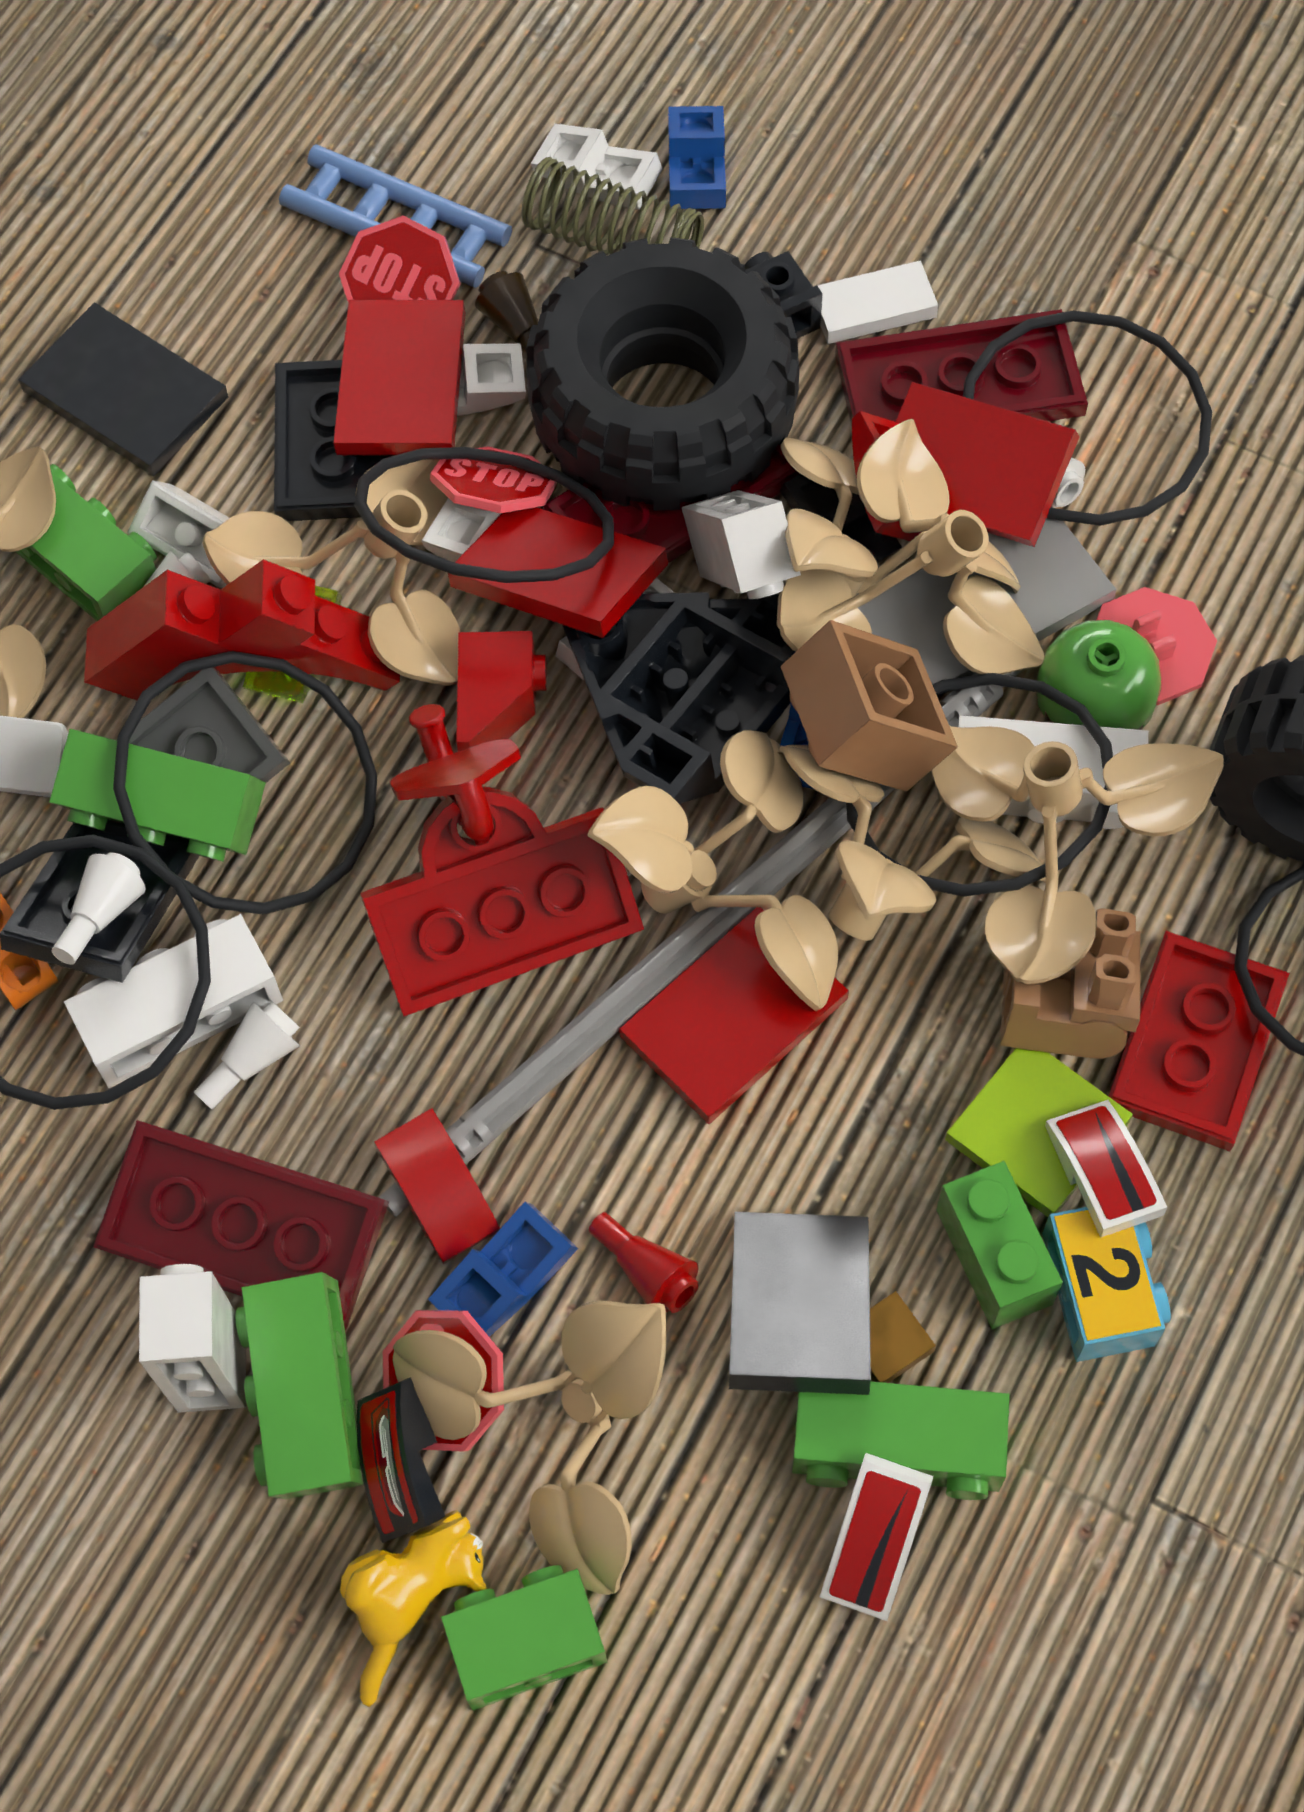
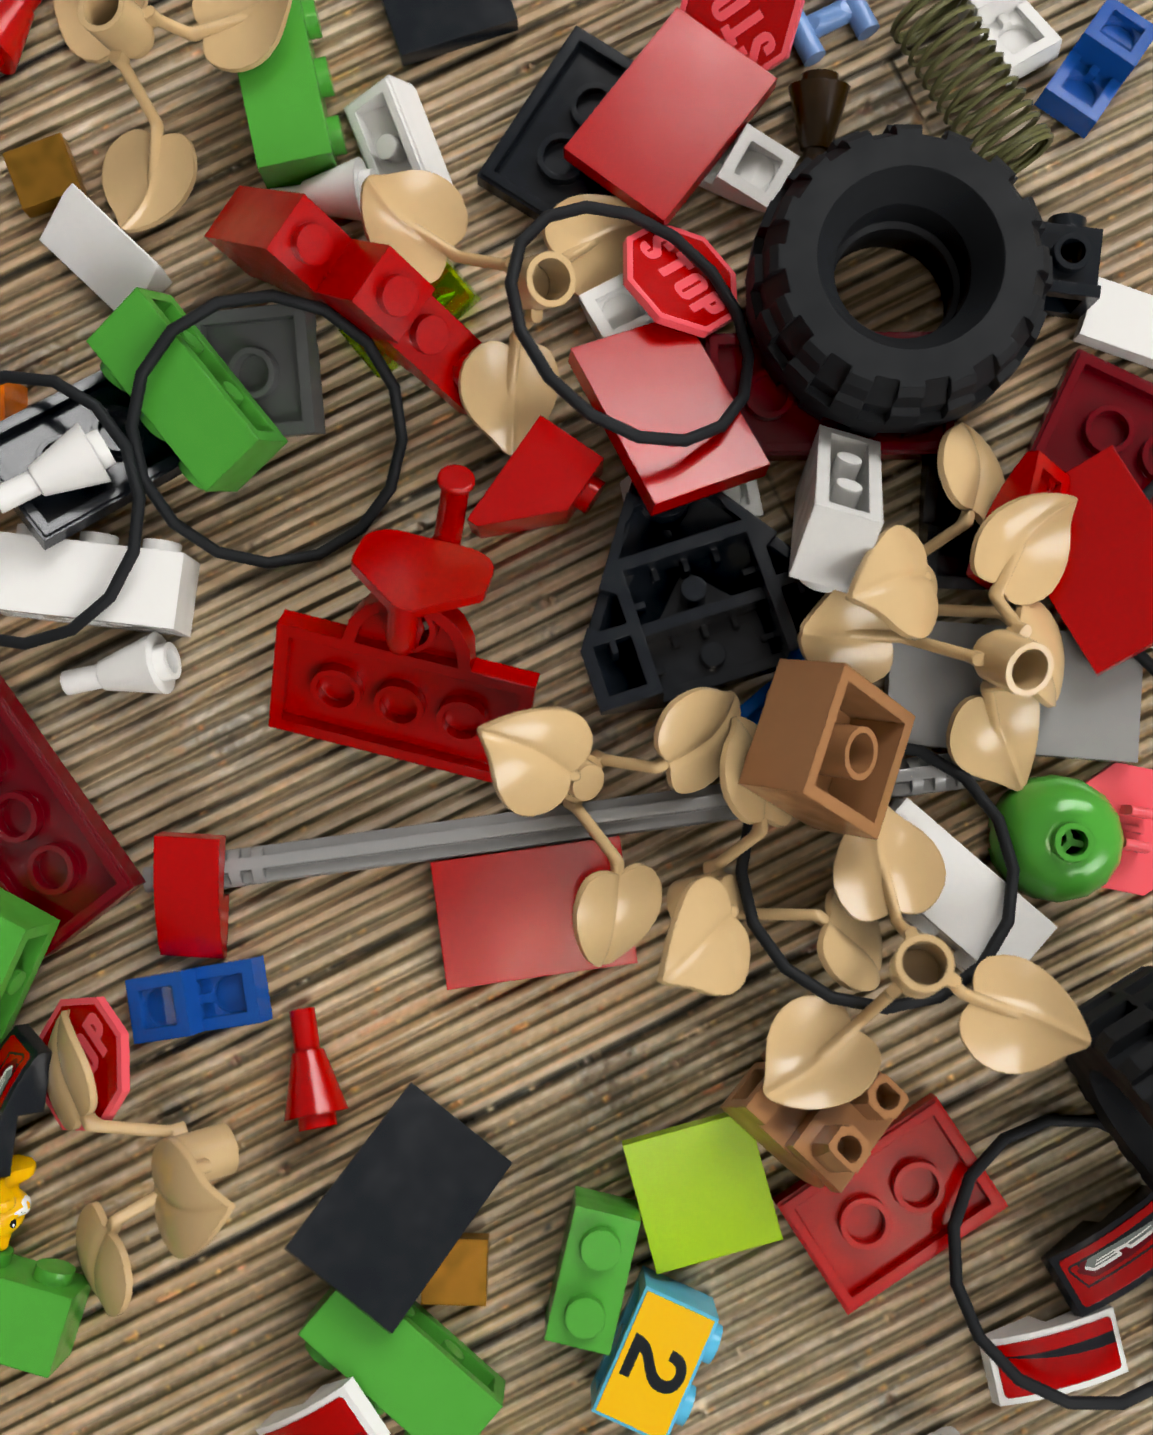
camera: 30 degrees right, 20 degrees up
(1107, 1167) = (721, 1280): slope -> none

